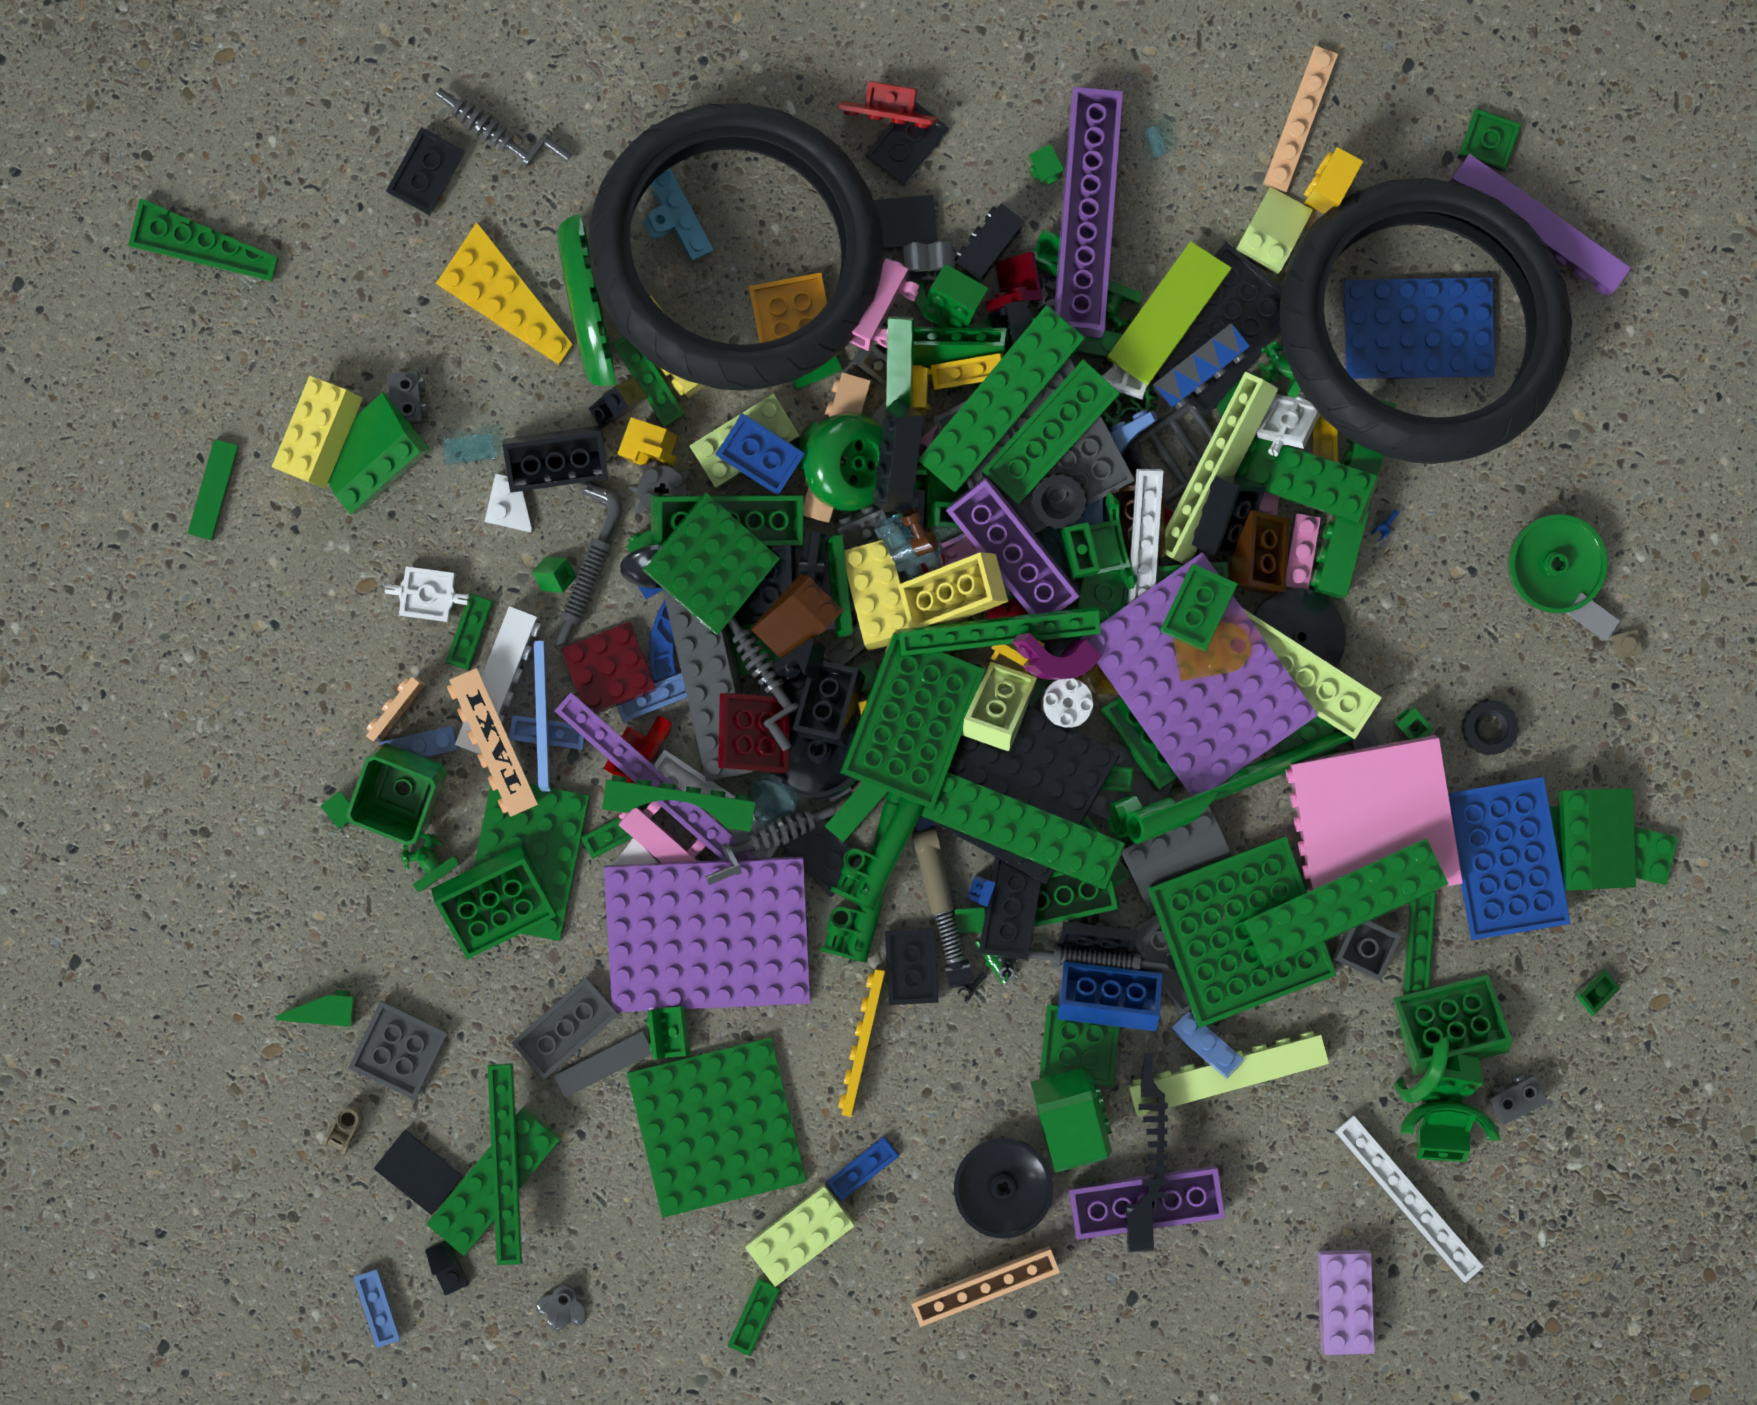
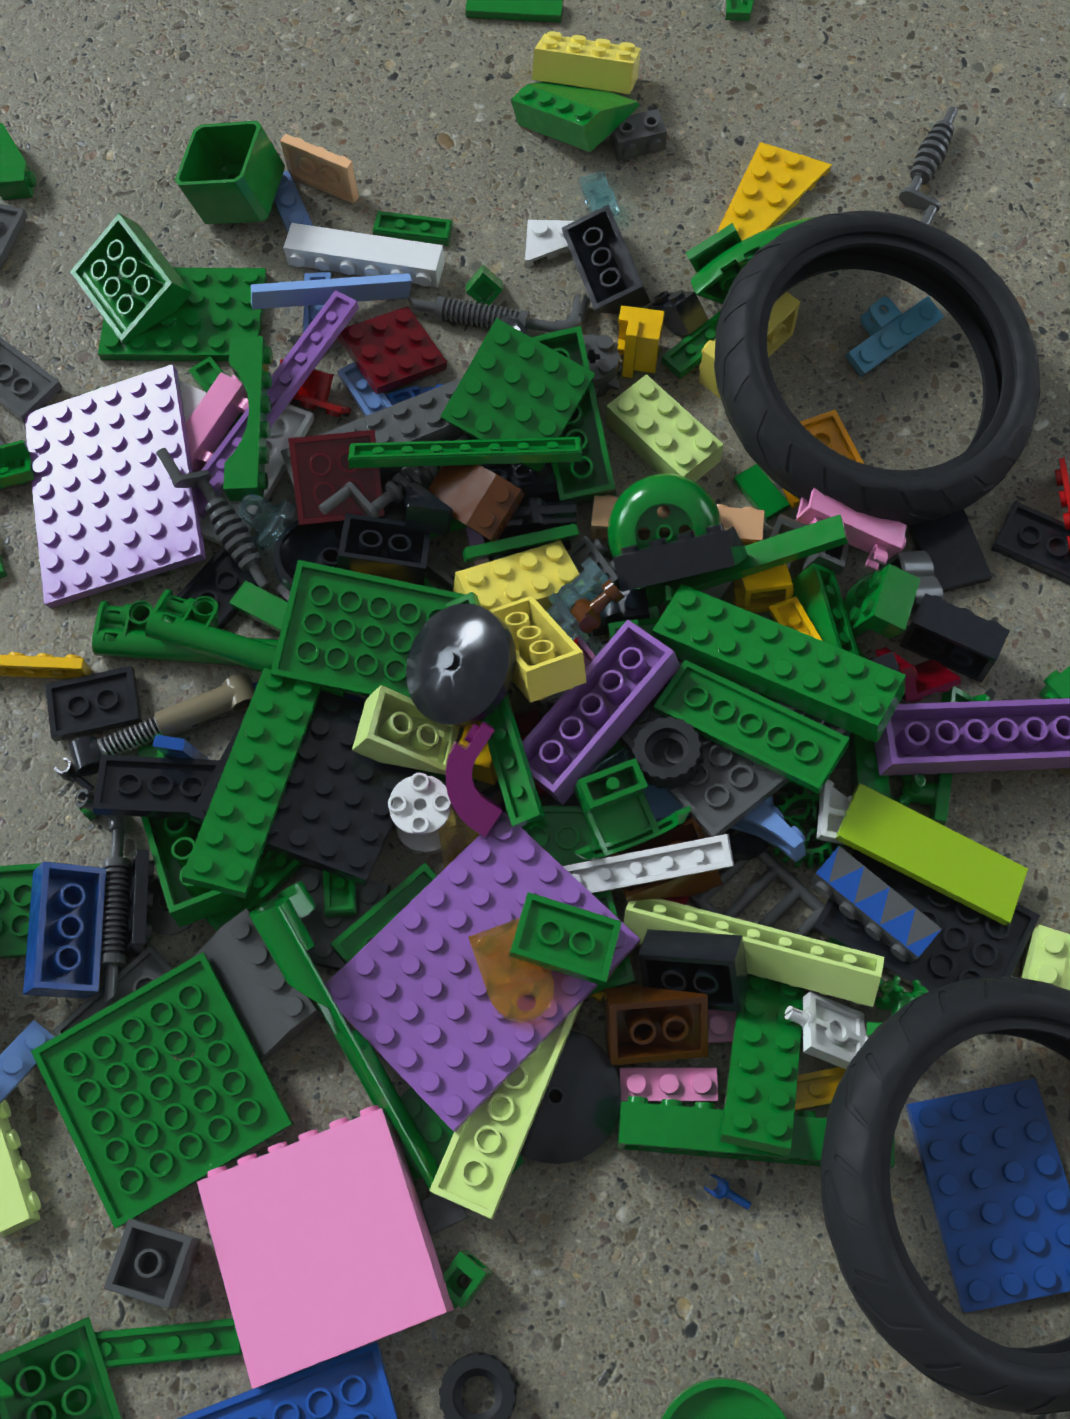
camera: 85 degrees right, 20 degrees down
(425, 171) = (869, 115): black plate -> none
(427, 594) = (443, 183): white plate -> none
(428, 862) = (166, 230): green piece -> none
(493, 742) = (297, 245): light nougat brick -> none
(574, 355) = (712, 247): none -> green tile
(759, 454) = (652, 433): blue plate -> none
(762, 618) = (465, 452): none -> green tile
(963, 652) = (460, 665): none -> black dish
(1345, 903) = (203, 1219): green brick -> none

